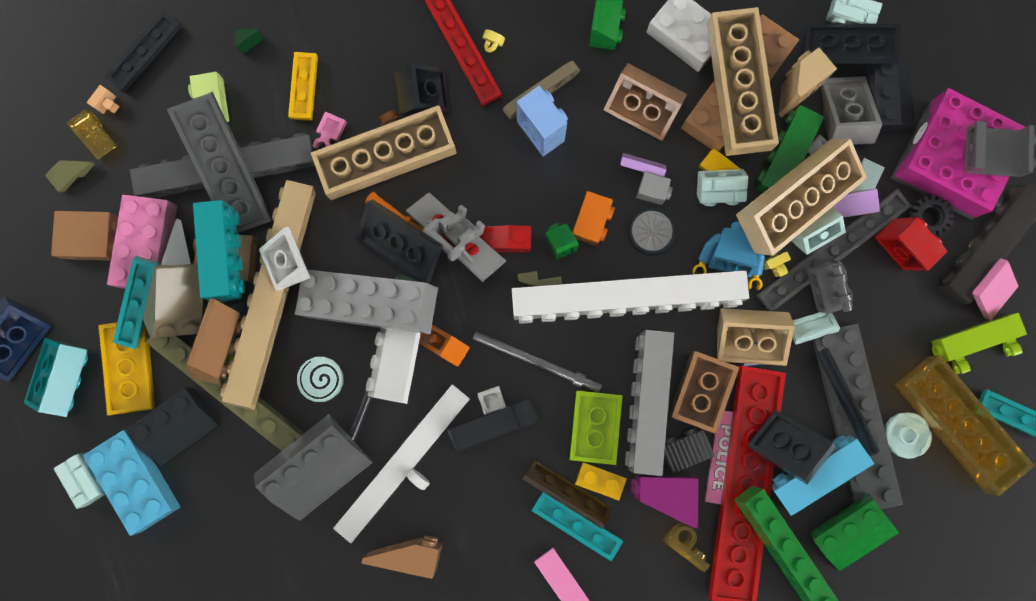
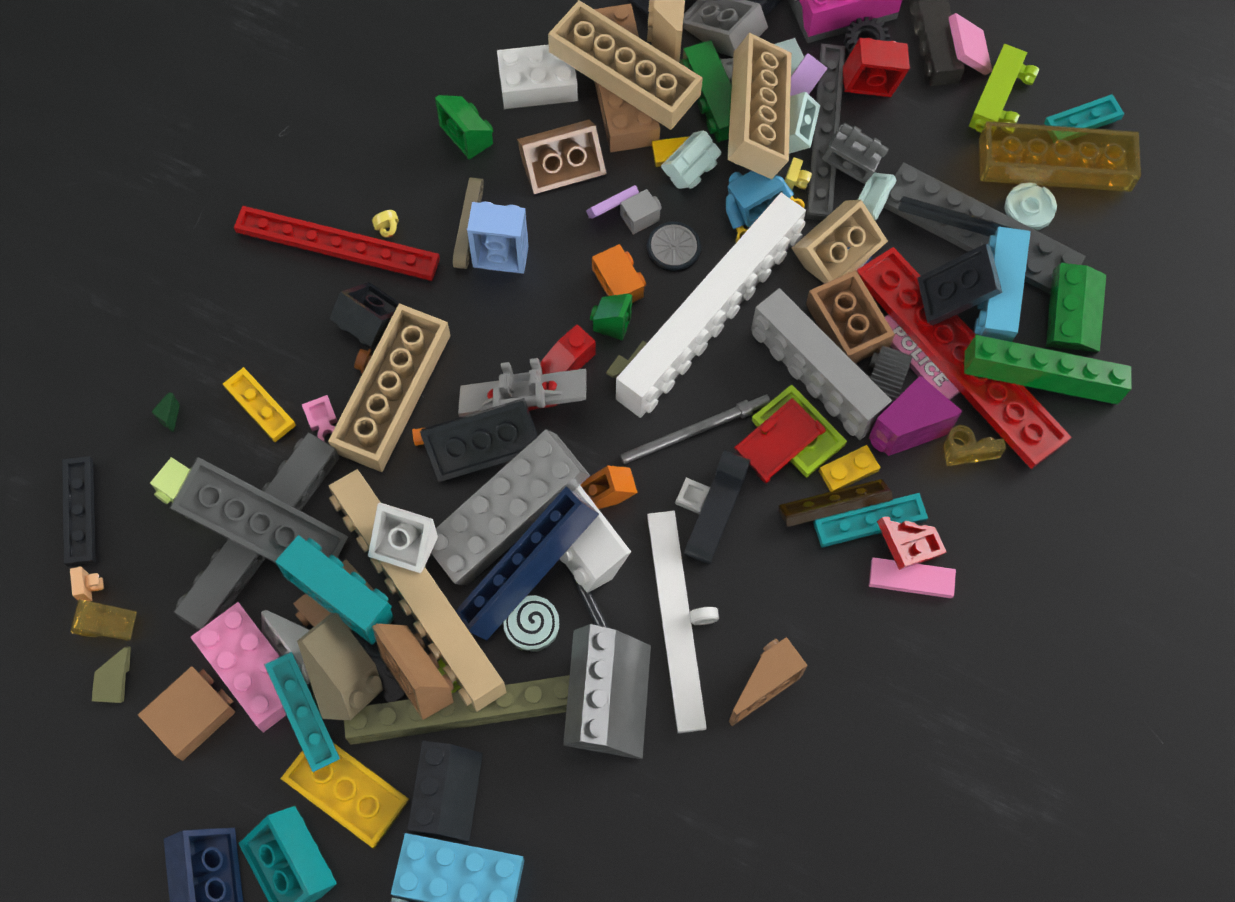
camera: 50 degrees left, 15 degrees down
(342, 347) = (526, 563): none -> dark blue brick
(576, 422) = (782, 442): none -> red door
(583, 566) = (910, 542): none -> wing

